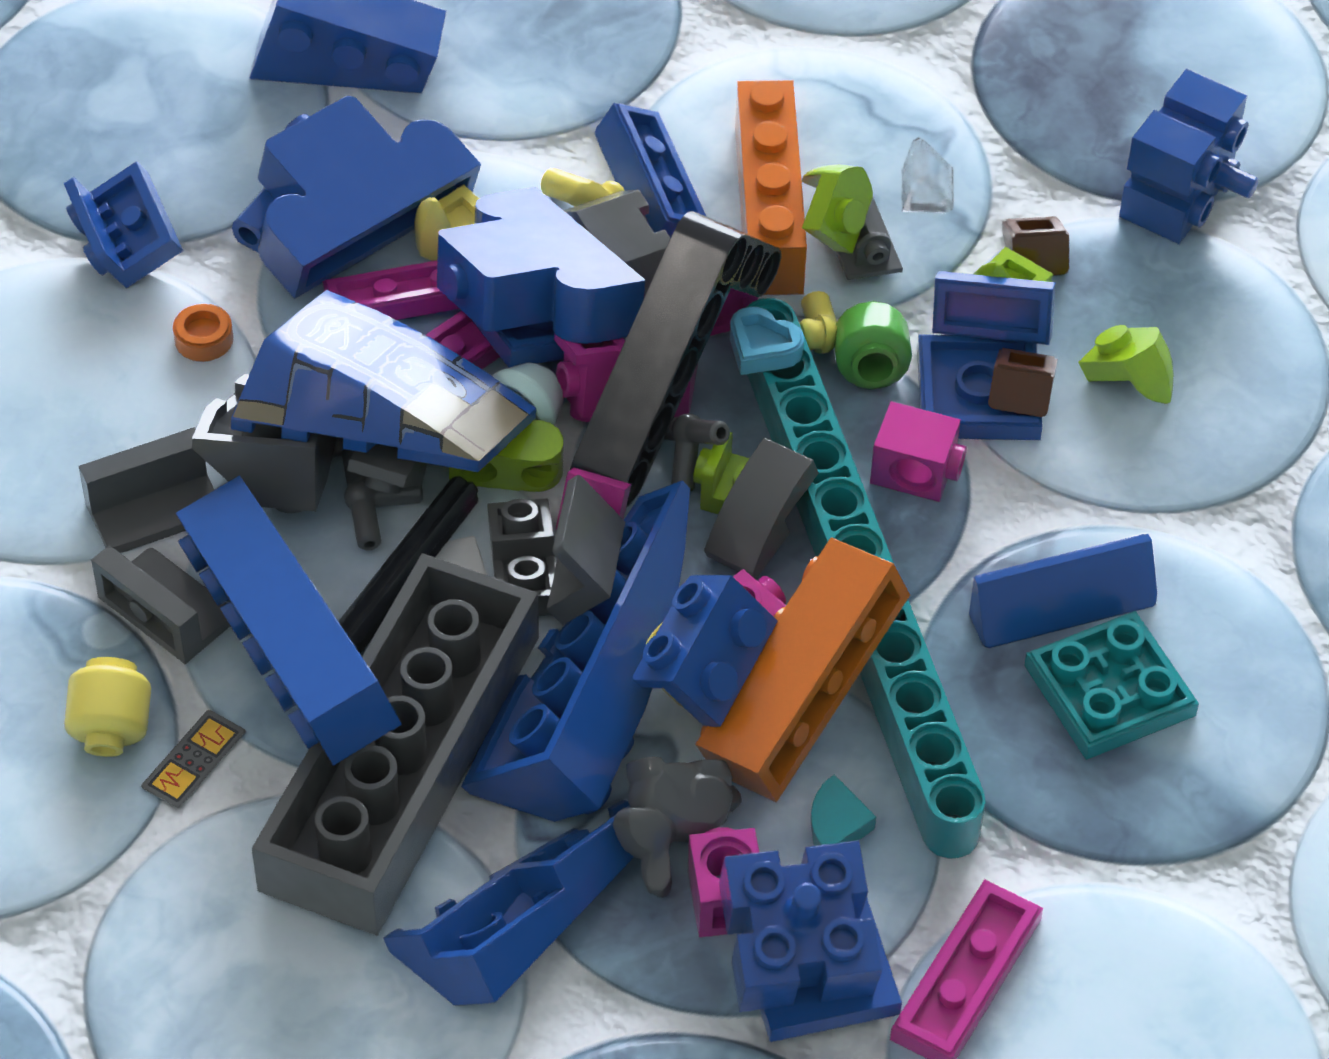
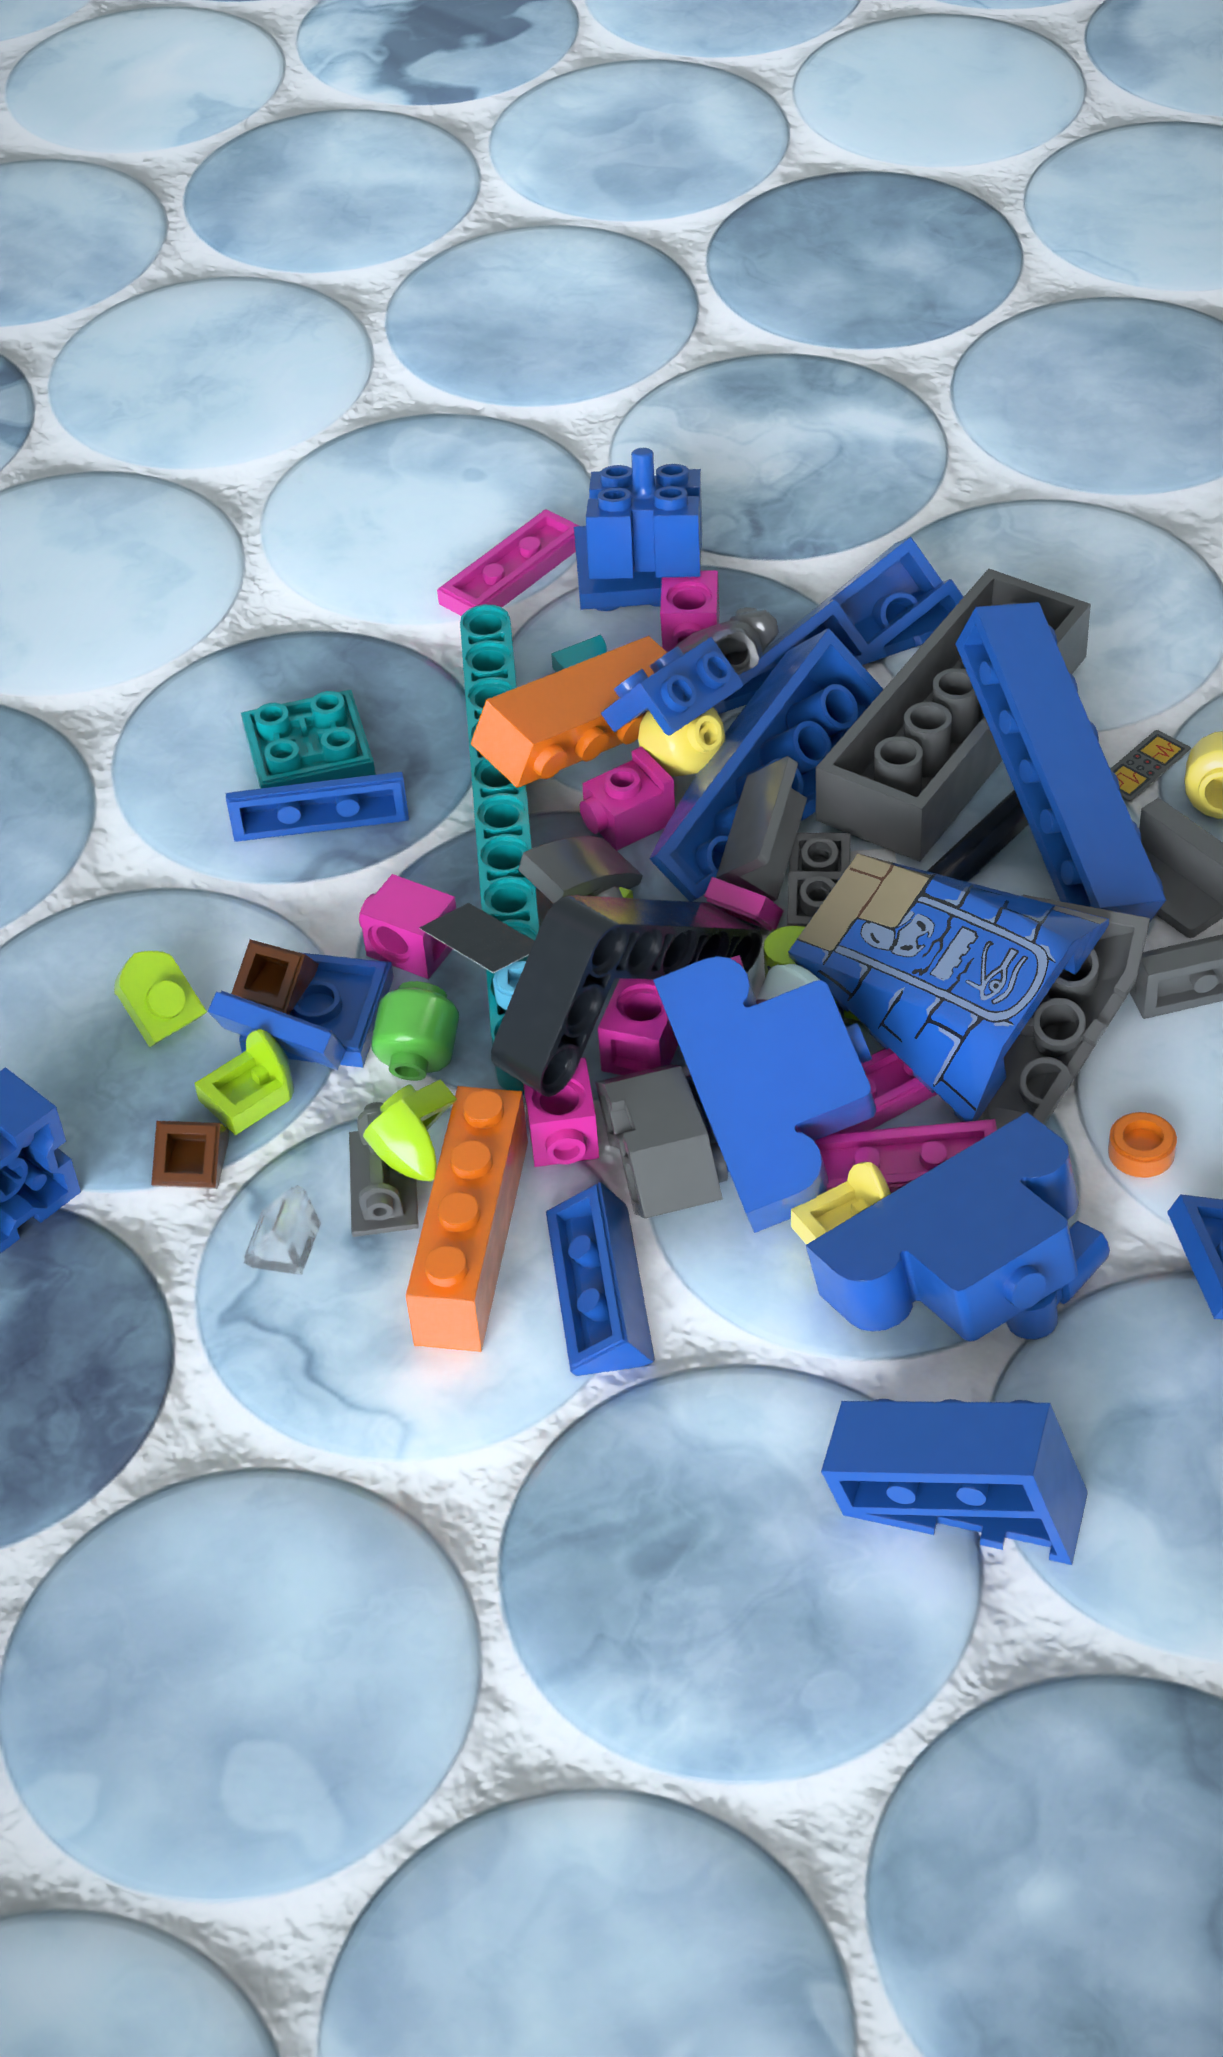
camera: 165 degrees left, 5 degrees down
(574, 188) = (685, 1246): light yellow arm -> none
(819, 322) = (463, 1048): light yellow arm -> none
(830, 385) = (480, 937): none -> black sticker

